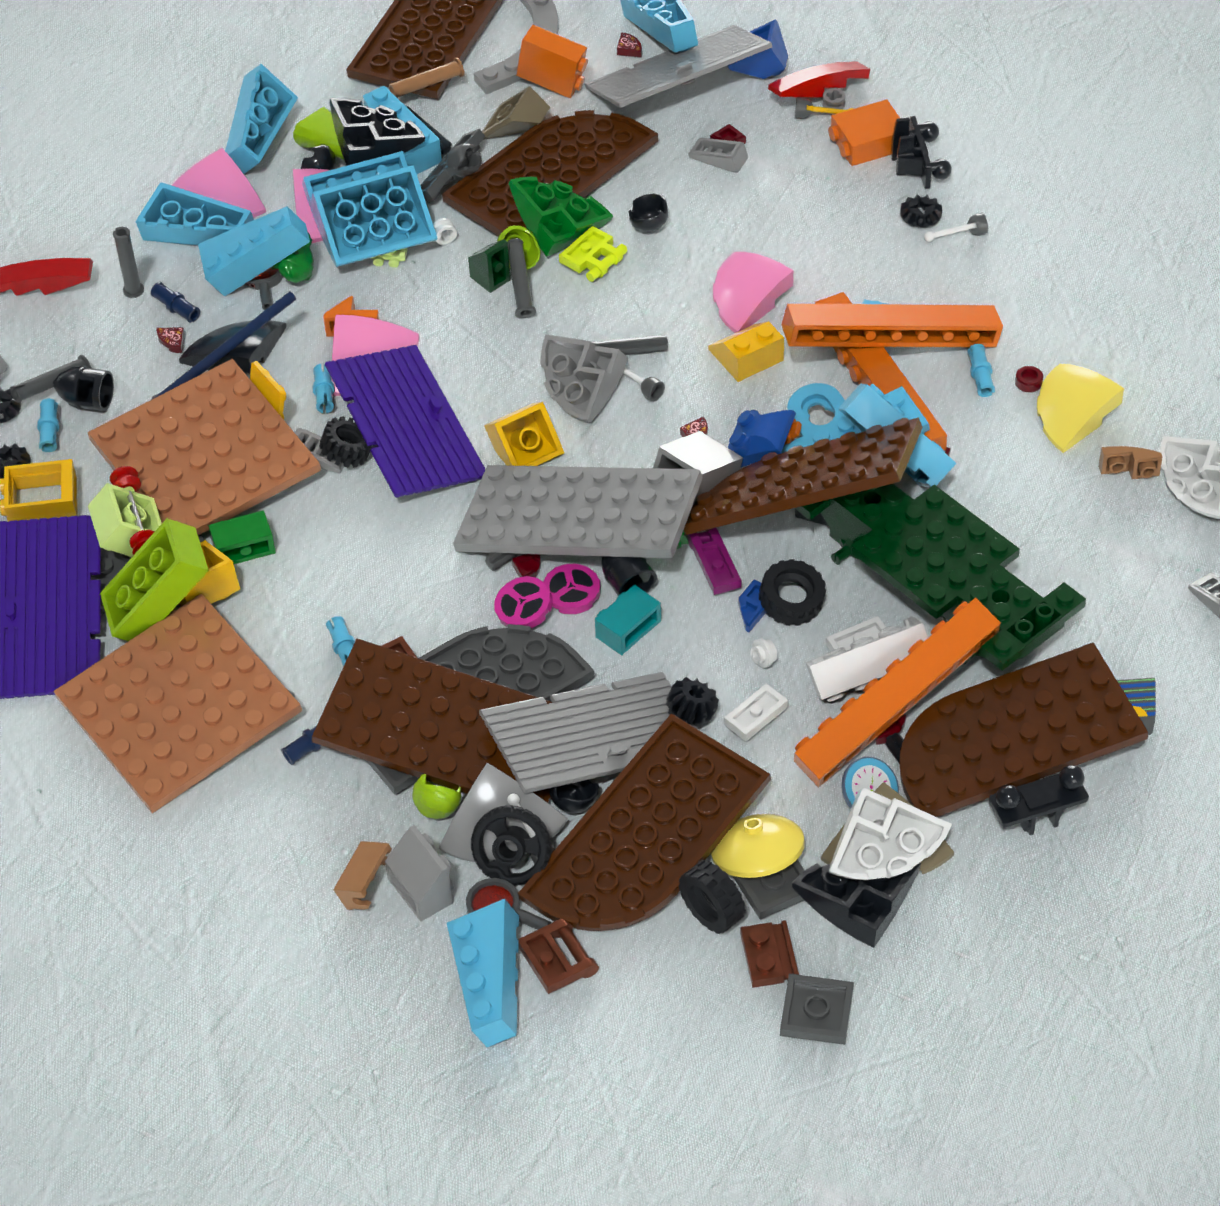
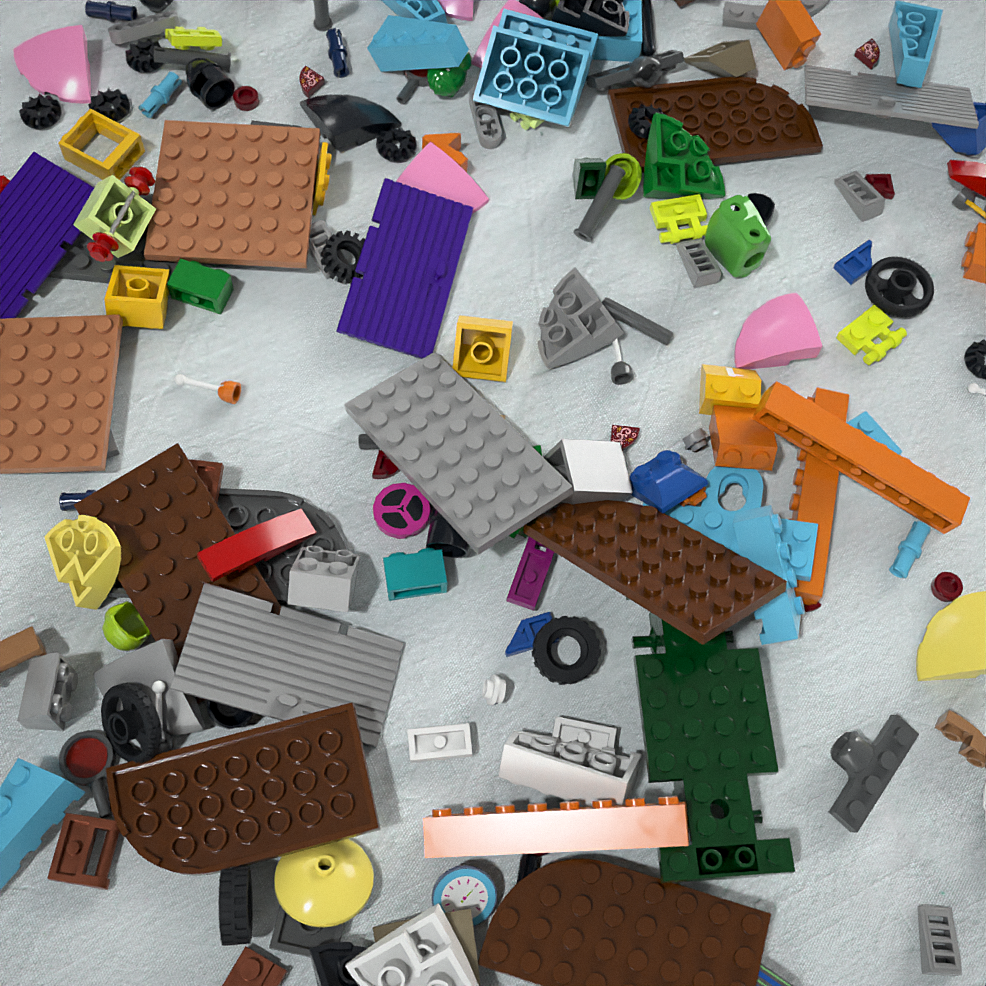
camera: 30 degrees right, 15 degrees up
(36, 361) = (184, 38): none -> neon yellow plate
(127, 384) = (246, 98): none -> dark red tile
(154, 580) = (85, 281): lime brick -> none
(233, 341) = (335, 114): dark blue piece -> none
(299, 347) = (390, 151): none -> black gear
(323, 389) = (369, 203): medium azure pin -> none
(341, 638) = (191, 430): medium azure pin -> none
(342, 597) = (227, 391): none -> hinge
(358, 285) = (483, 125): none -> light grey beam
(358, 763) = (85, 557): none -> light yellow brick
(450, 233) = (582, 123): white bush -> none
(489, 667) = (256, 544): none -> red slope
(497, 204) = (638, 124): none -> black gear
(523, 602) = (350, 497): dark pink tile -> none
(564, 659) = (323, 578): none -> light grey slope
(648, 282) = (697, 277): none -> light grey slope
(657, 235) = (737, 237): none -> bright green piece
(692, 701) = (384, 700): black gear -> none
(754, 398) = (695, 440): none -> light grey plate
(761, 204) = (856, 263): none -> blue tile
(790, 370) = (741, 440): none -> orange brick
(811, 200) = (899, 287): none -> black wheel
(812, 244) = (865, 329): none -> neon yellow plate
(1079, 523) = (868, 769): none -> dark grey plate

